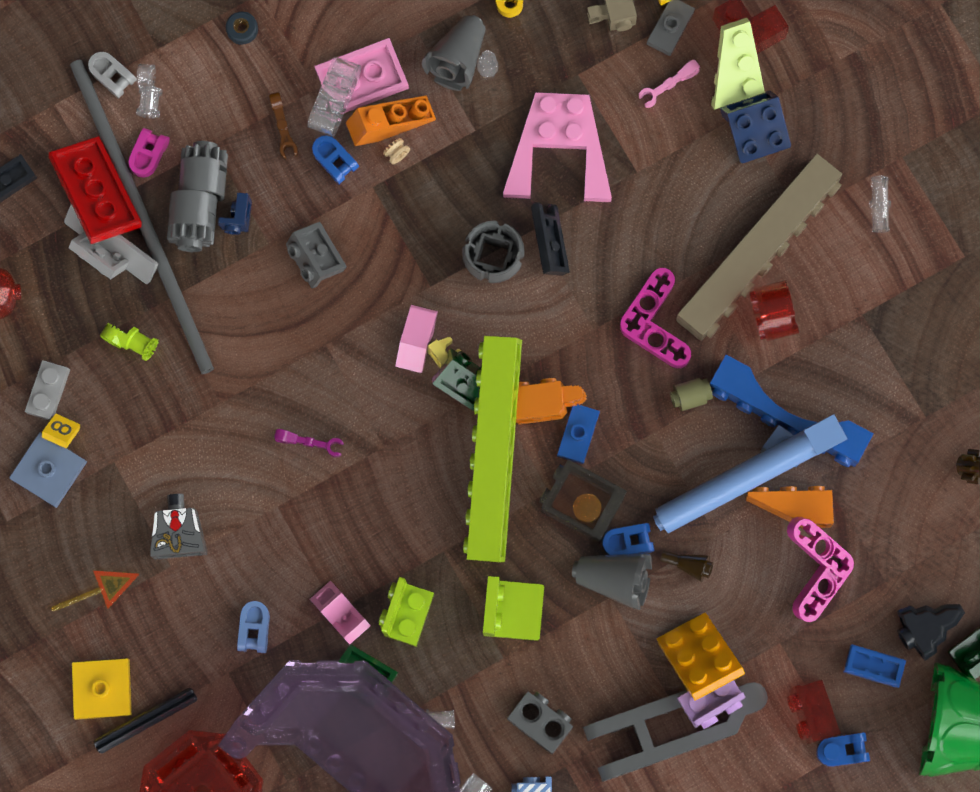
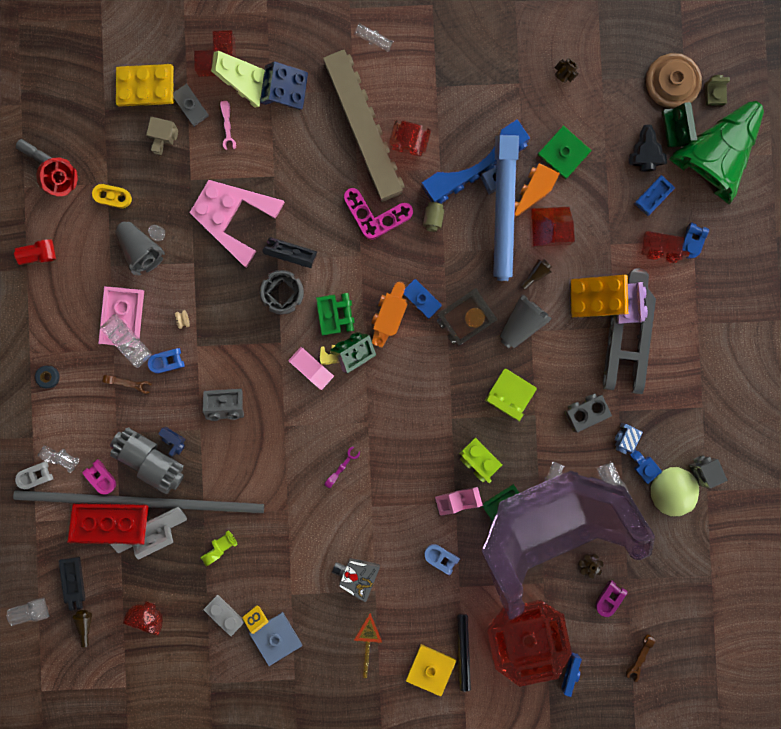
camera: 75 degrees left, 10 degrees up
(388, 119) = (158, 313): orange slope -> none
(493, 449) = (408, 355): lime brick -> none
(501, 323) = (329, 316): none -> green plate
(618, 540) = (502, 309): blue plate -> none
(761, 552) = (552, 226): none -> clear red slope
(827, 569) = (583, 192): dark pink beam -> none
(867, 520) = (564, 152): none -> green plate

